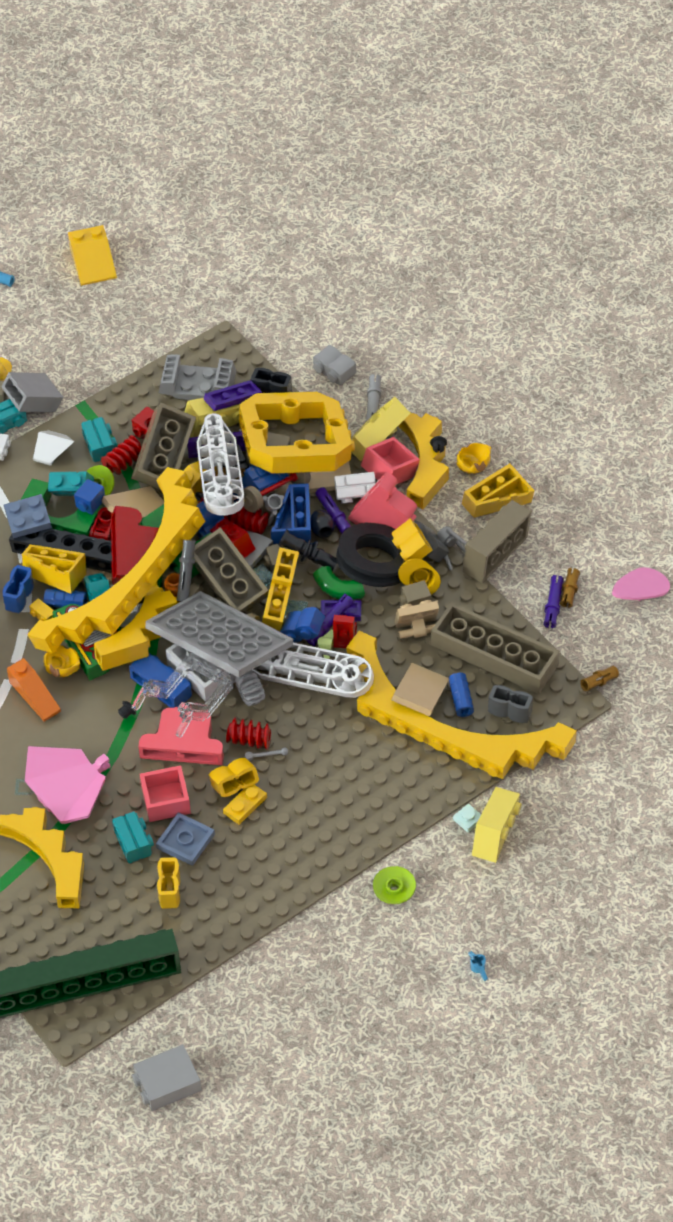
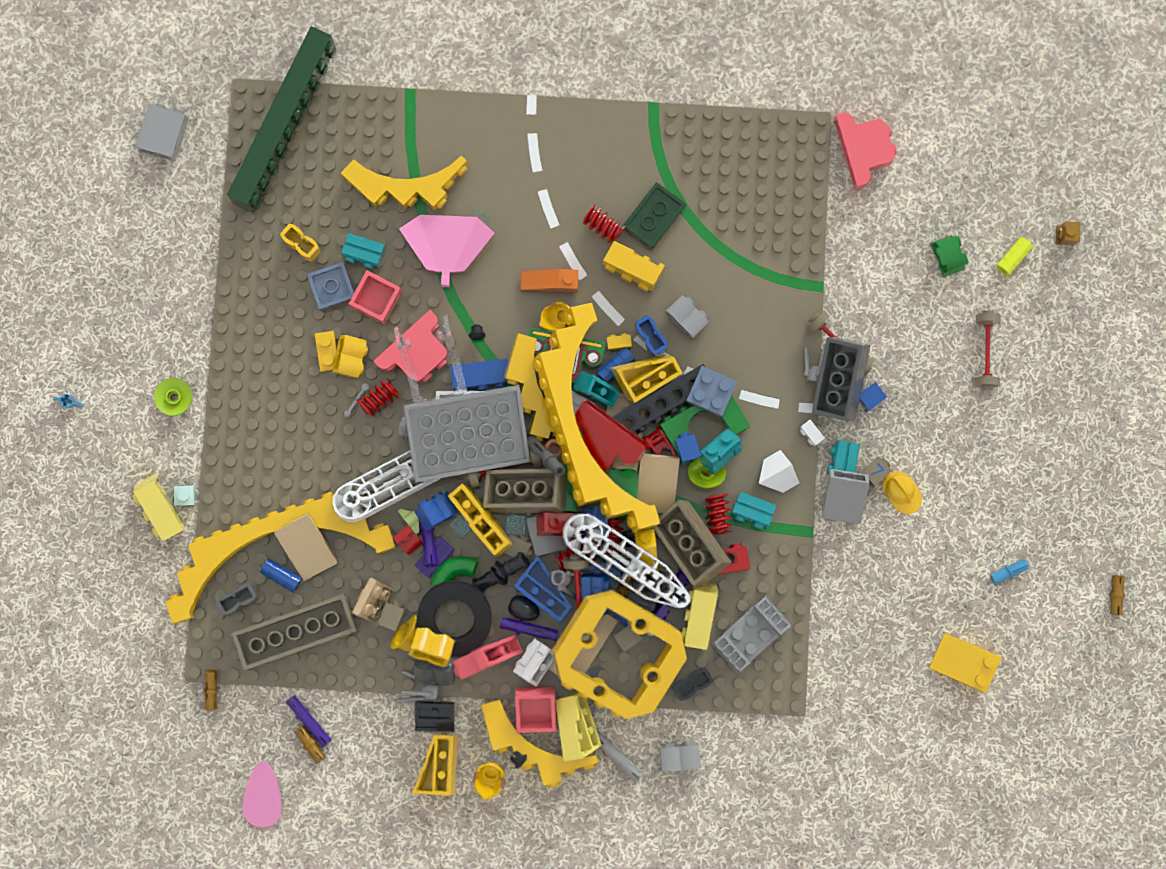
camera: 125 degrees right, 30 degrees up
(231, 395) = (698, 637): dark purple plate -> none
(461, 524) = (434, 716): none -> black plate
(496, 541) = (388, 721): dark tan brick -> none

